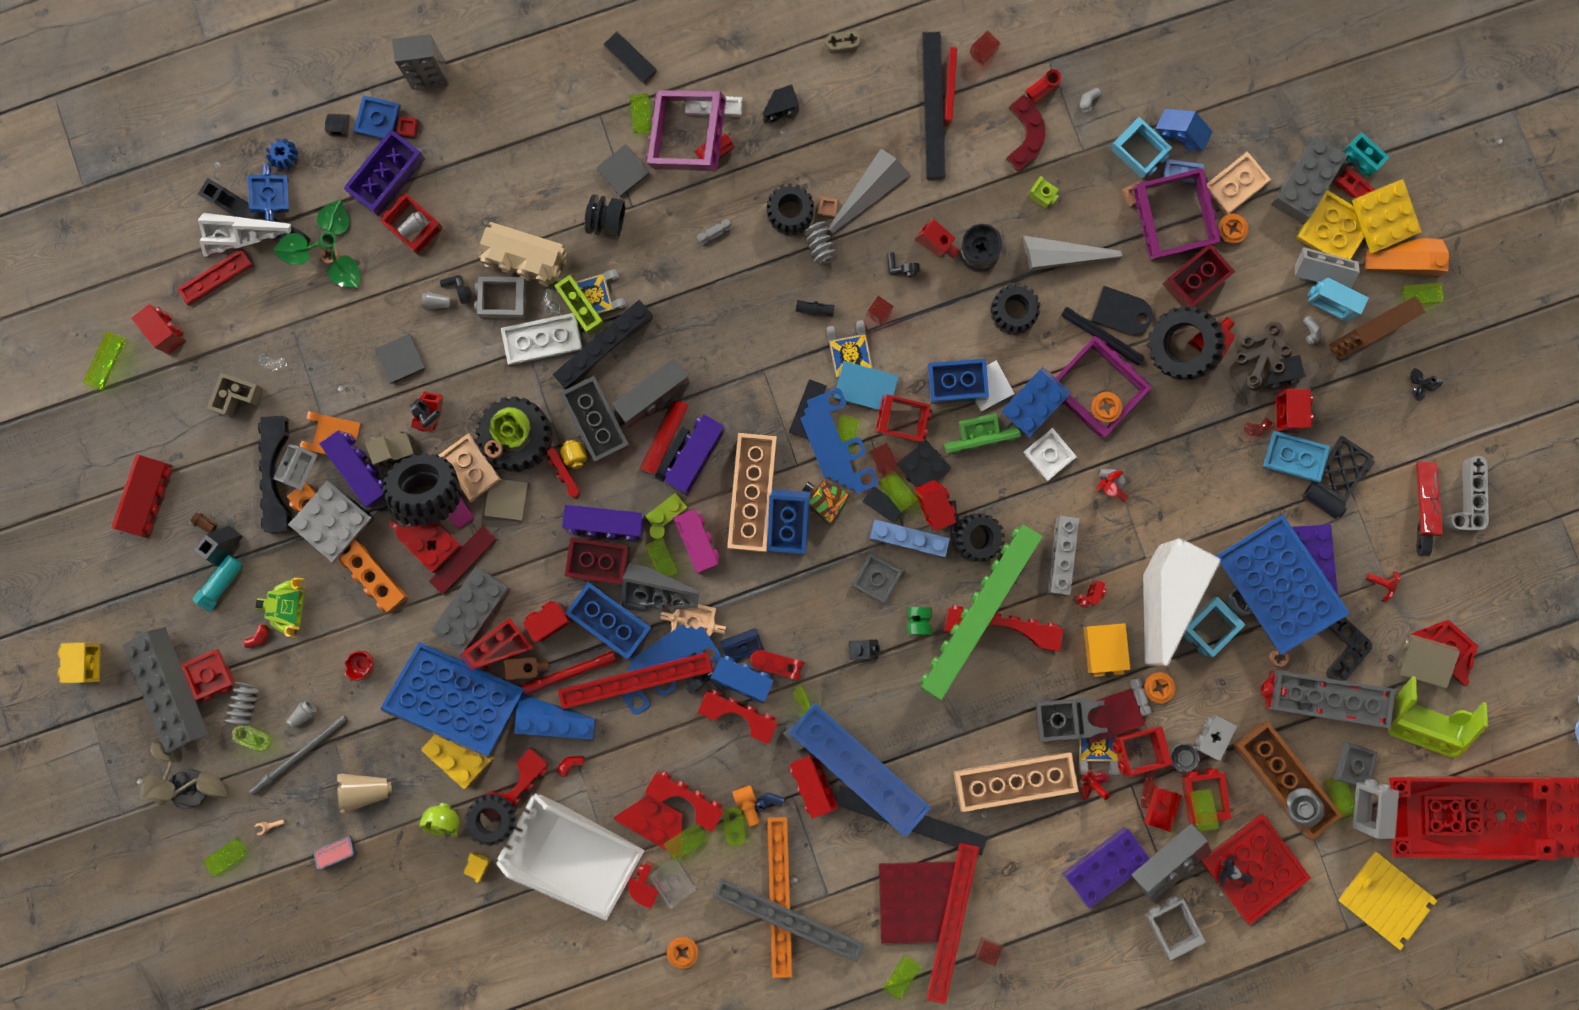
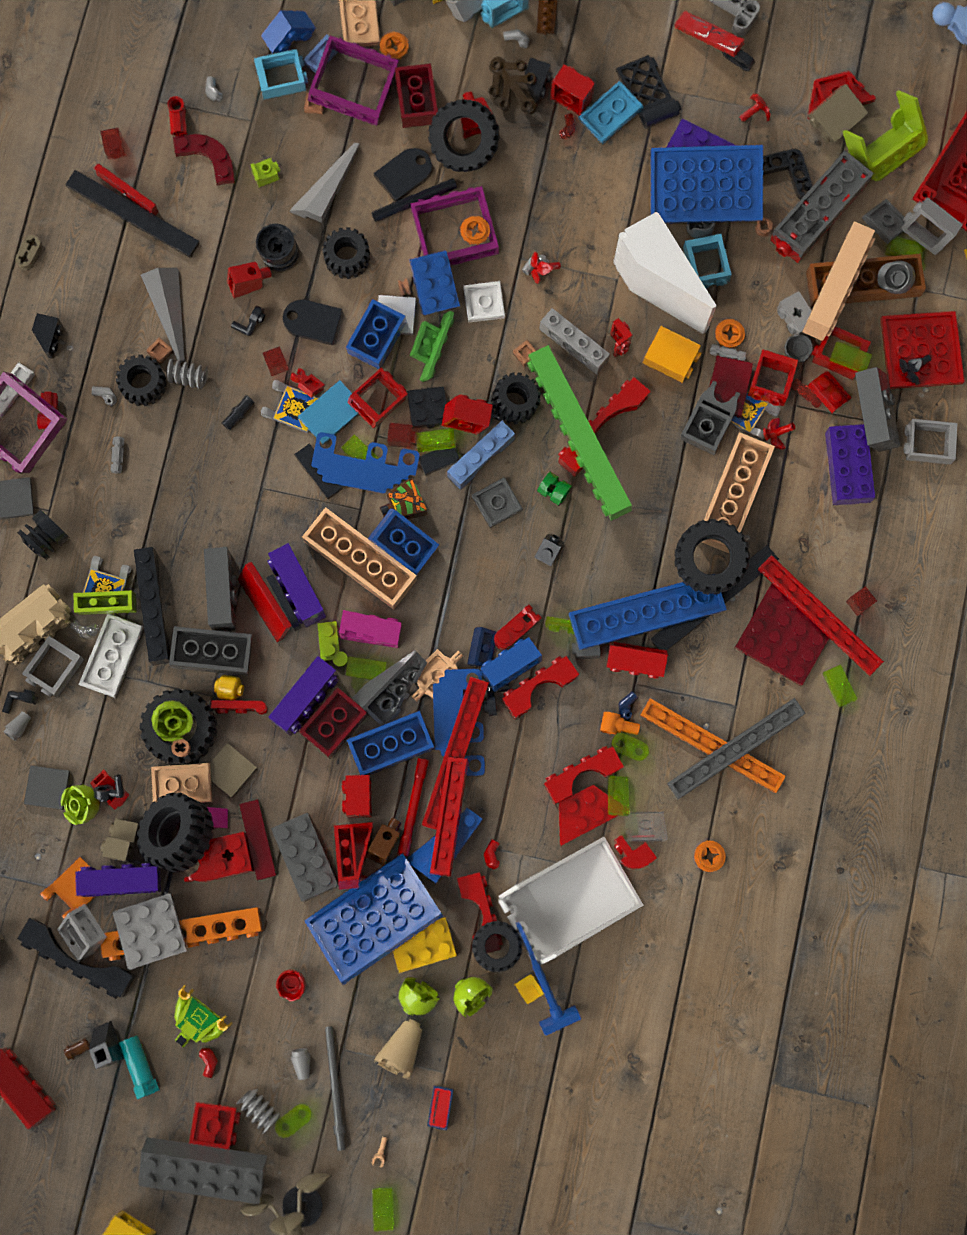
camera: 55 degrees left, 5 degrees down
(400, 395) = (79, 804): none -> lime cylinder
(412, 777) = (417, 998): none -> lime cylinder
(466, 907) = (558, 1018): none -> blue piece
(575, 710) = (449, 816): none -> red plate
(761, 188) = (107, 394): none -> light grey arm
(877, 351) = (308, 384): none -> red plate
(934, 824) = (712, 530): none -> black tyre
(937, 320) = (313, 322): none -> black tile
(1017, 377) = (404, 287): none -> nougat bush
(1027, 518) = (522, 352): none -> nougat tile
(1268, 758) = (840, 281): none -> light nougat brick

